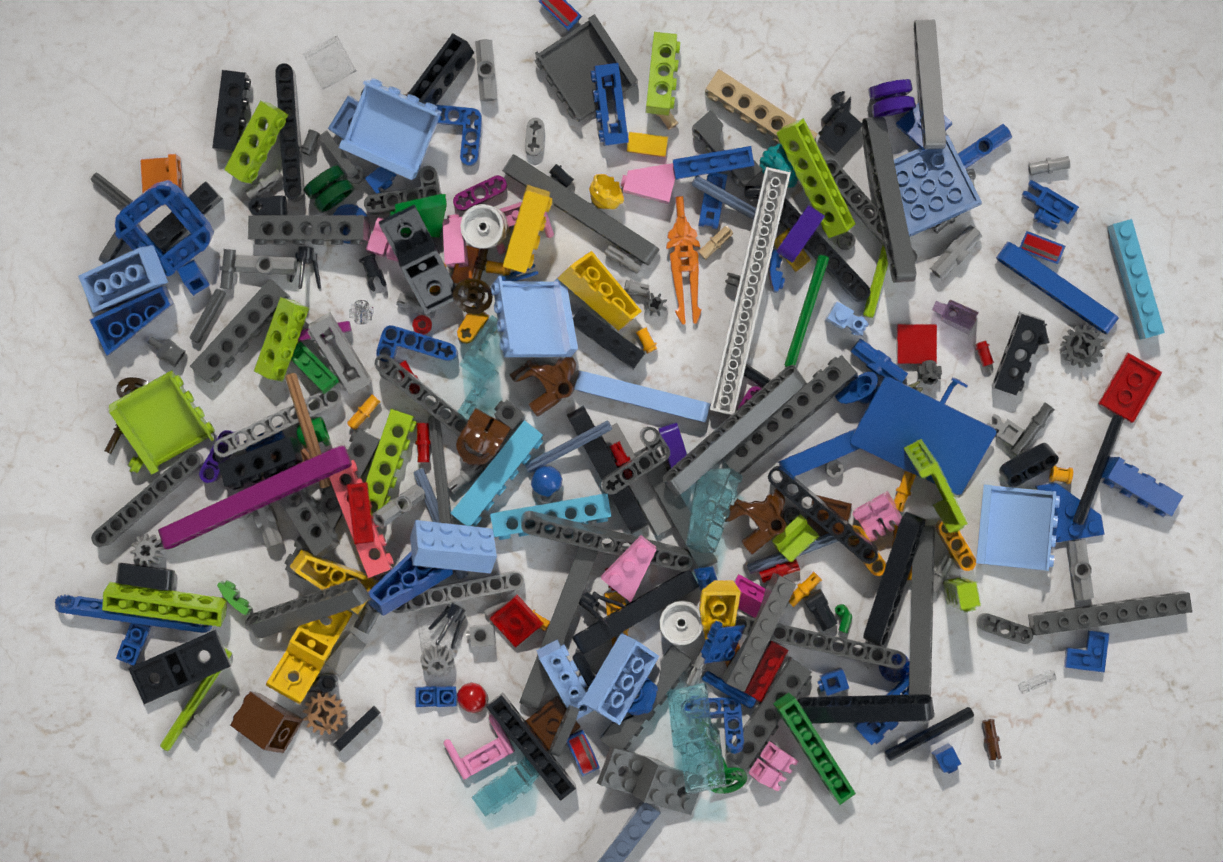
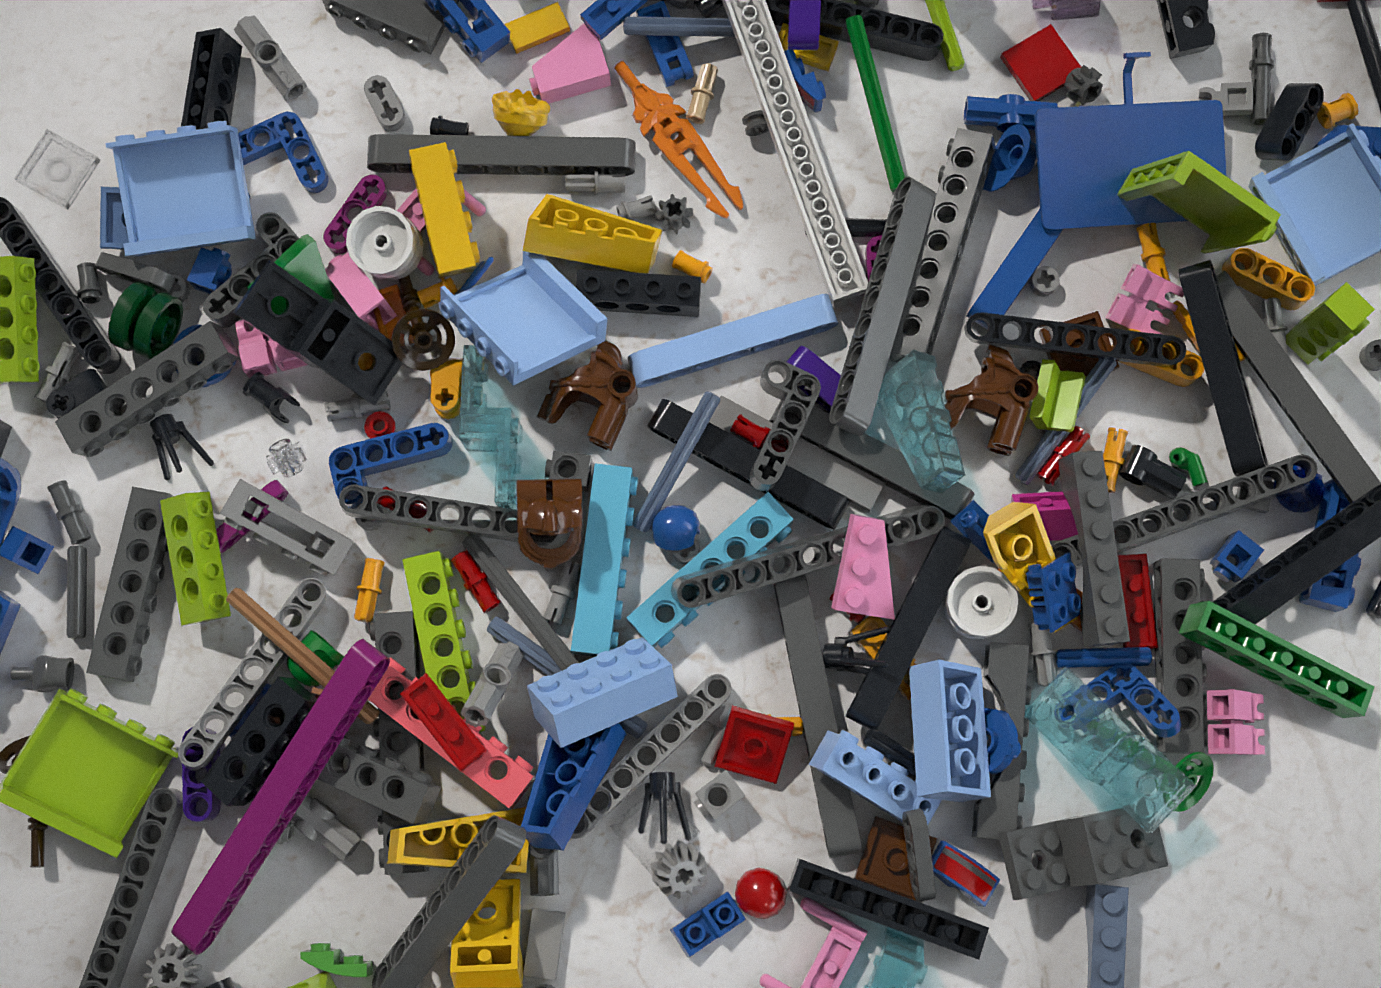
camera: 30 degrees left, 10 degrees down
(135, 464) = (87, 859): lime plate -> none
(254, 264) = (102, 482): light grey piece -> none
(313, 368) = (263, 571): green plate -> none
(843, 317) = (926, 81): light blue brick -> none
(984, 353) = (1134, 23): red pin -> none

